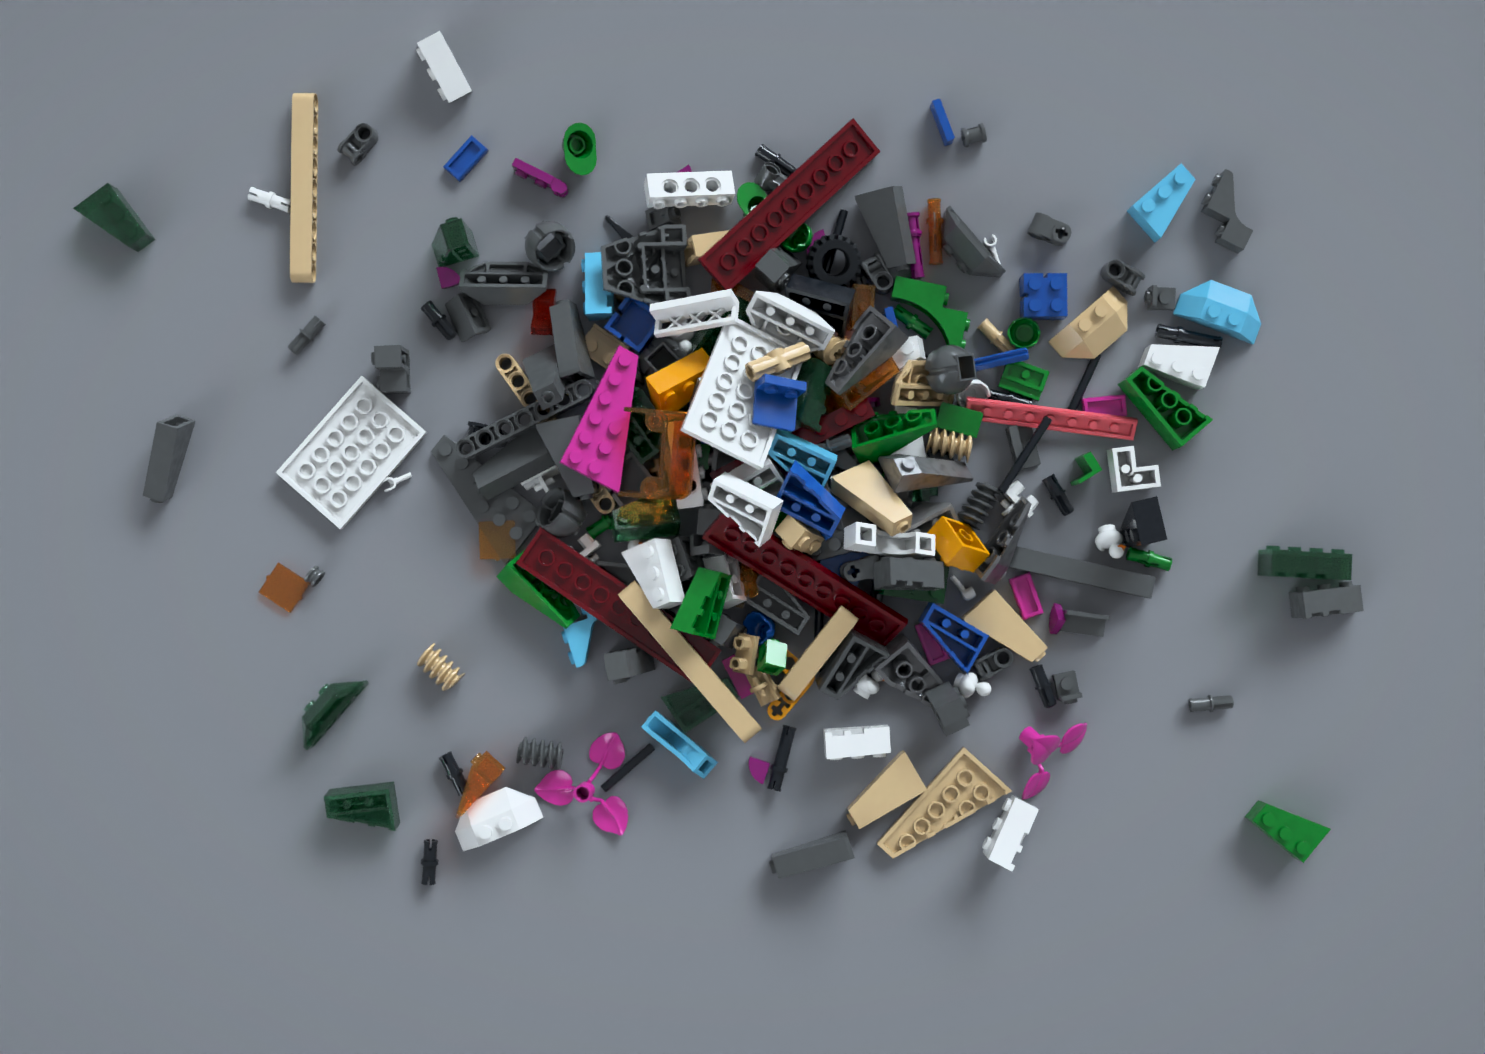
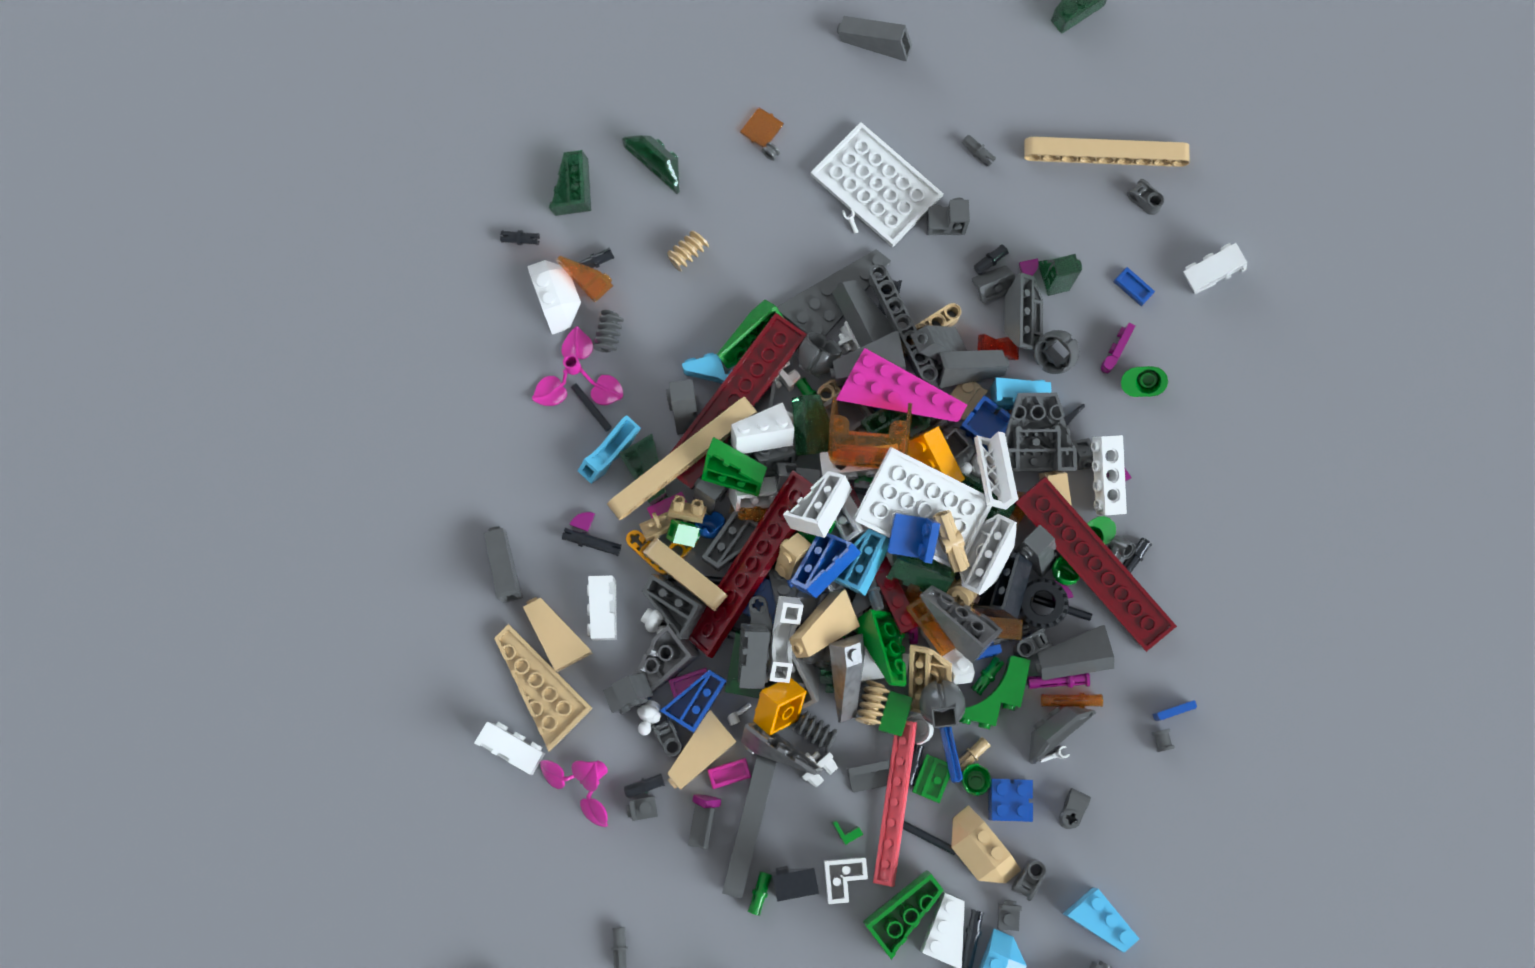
camera: 85 degrees right, 10 degrees down
(269, 199) = (1096, 123): white pin -> none
(496, 541) = (796, 300): clear orange piece -> none
(1024, 454) = (861, 774): black bar -> none
(1058, 495) = (822, 807): black axle -> none
(1106, 405) = (907, 858): dark pink tile -> none
(1111, 539) = (779, 855): white animal -> none

